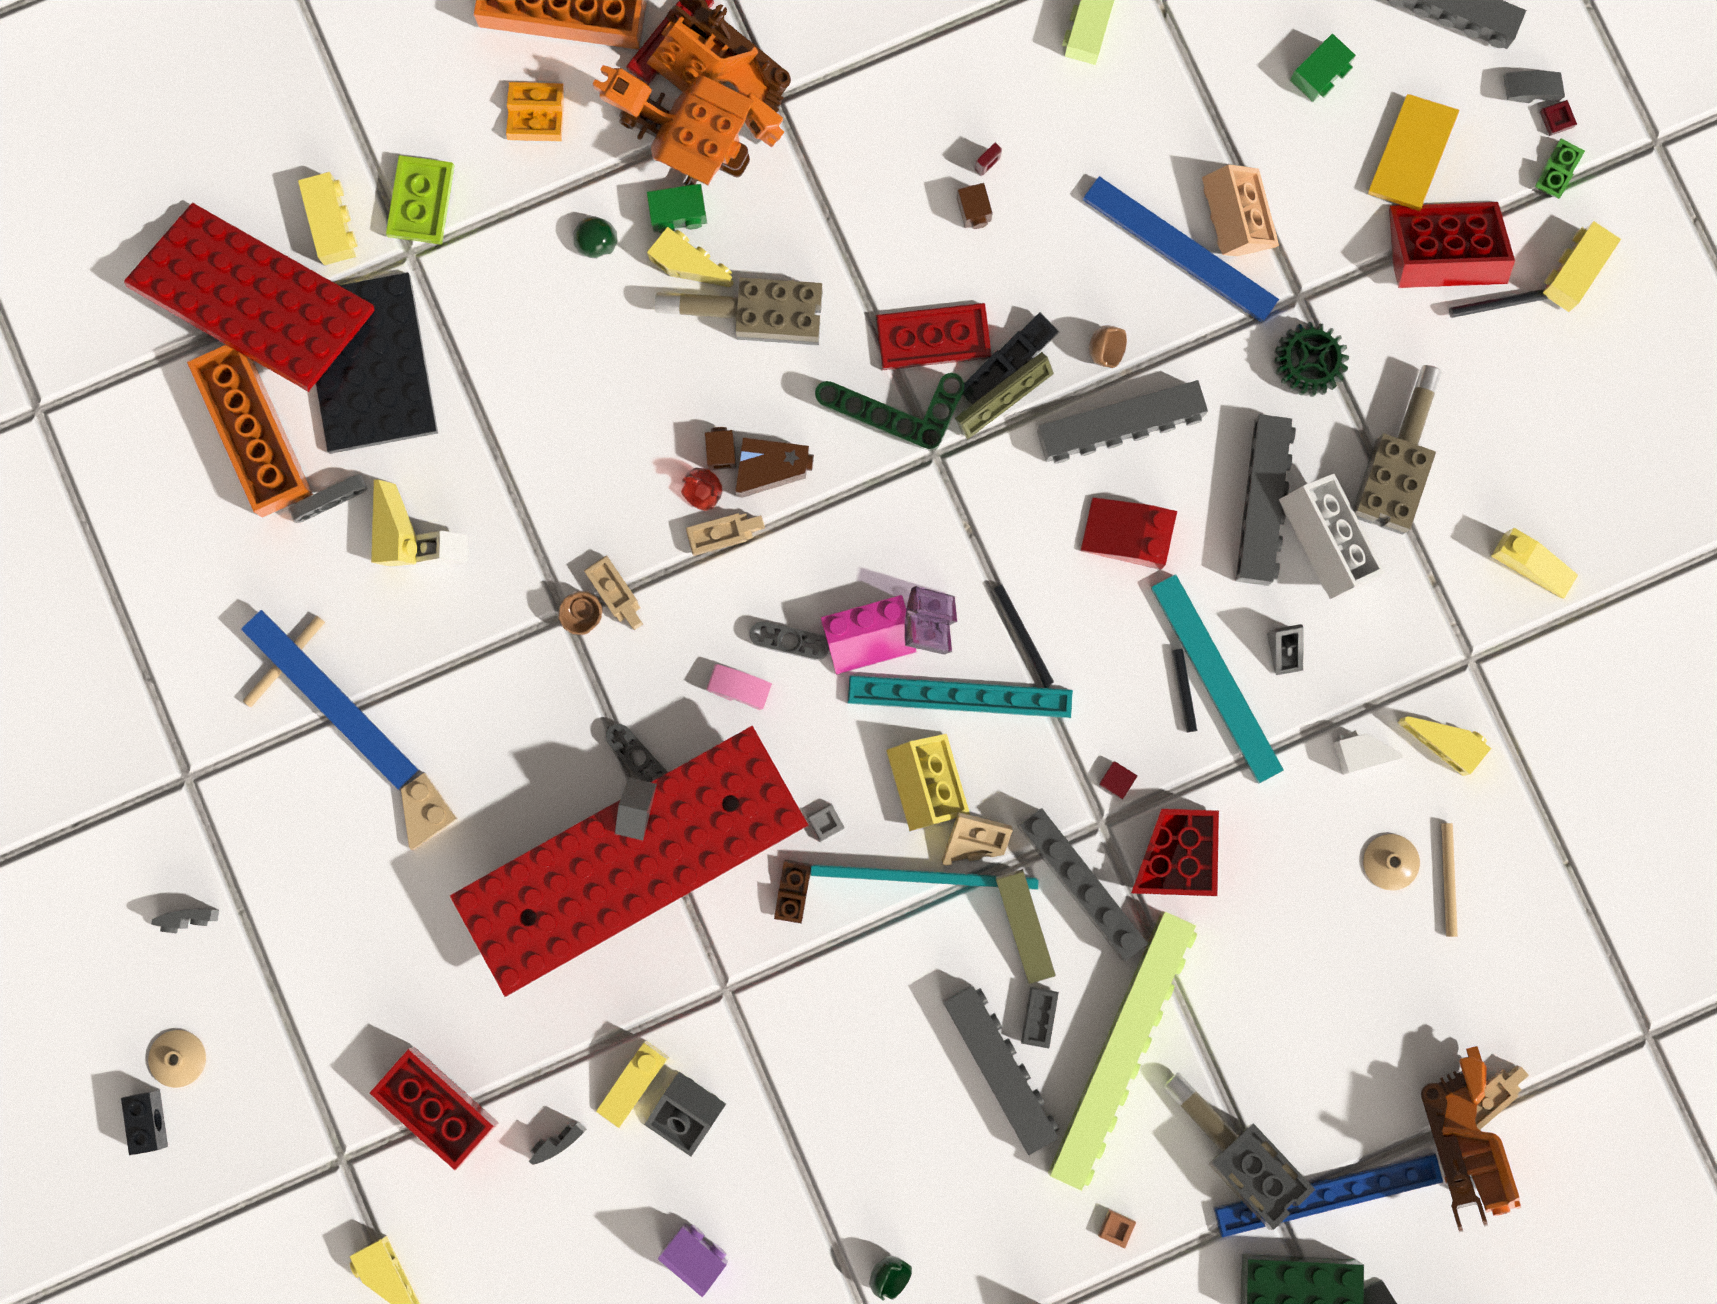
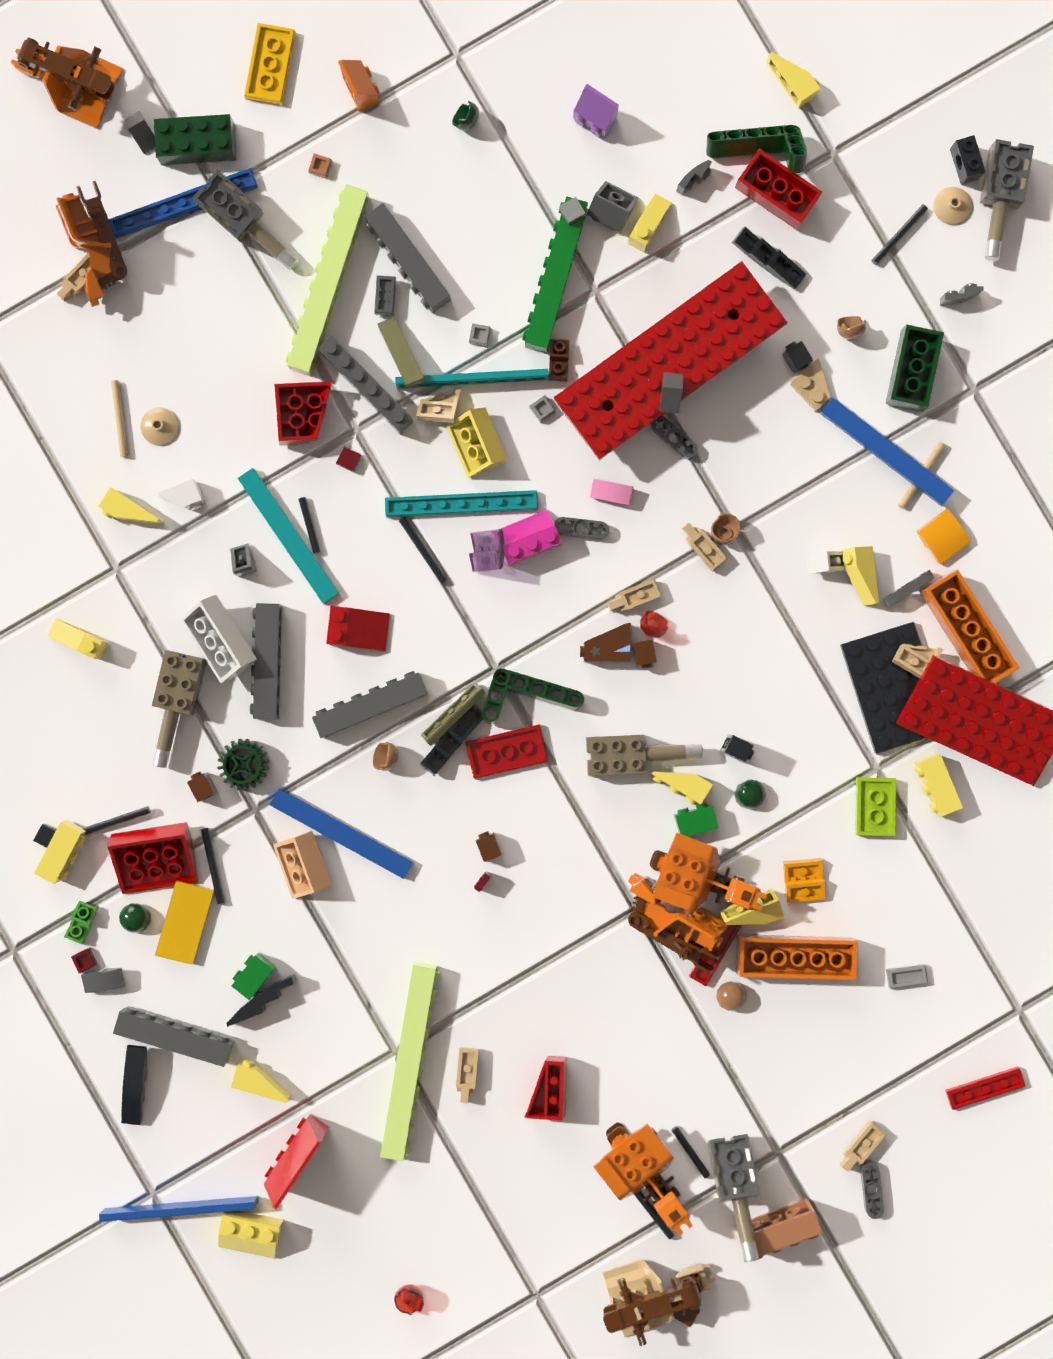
camera: 175 degrees right, 5 degrees up
(96, 1073) = (1004, 187): none -> dark grey piece
(262, 1022) = (899, 234): none -> black bar
(265, 568) = (943, 536): none -> light orange slope
(271, 815) = (914, 368): none -> dark green brick
(332, 394) = (915, 658): none -> tan wing
(355, 889) = (851, 327): none -> medium nougat hair
(441, 854) = (797, 356): none -> black brick
(448, 1188) = (769, 139): none -> dark green beam
(462, 1008) = (768, 258): none -> black slope
(588, 70) = (770, 912): none -> light yellow slope
(605, 297) = (737, 748): none -> black brick
(747, 1108) = (572, 210): none -> light grey tile
(781, 1020) = (553, 281): none -> green brick
(905, 943) = (479, 334): none -> light grey tile
(1310, 38) = (257, 1004): none -> black slope
(1367, 226) = (212, 866): none -> black bar
(1372, 334) = (202, 786): none -> reddish brown brick
(1483, 166) = (134, 918): none -> dark green hair
(1600, 293) = (44, 835): none -> black tile

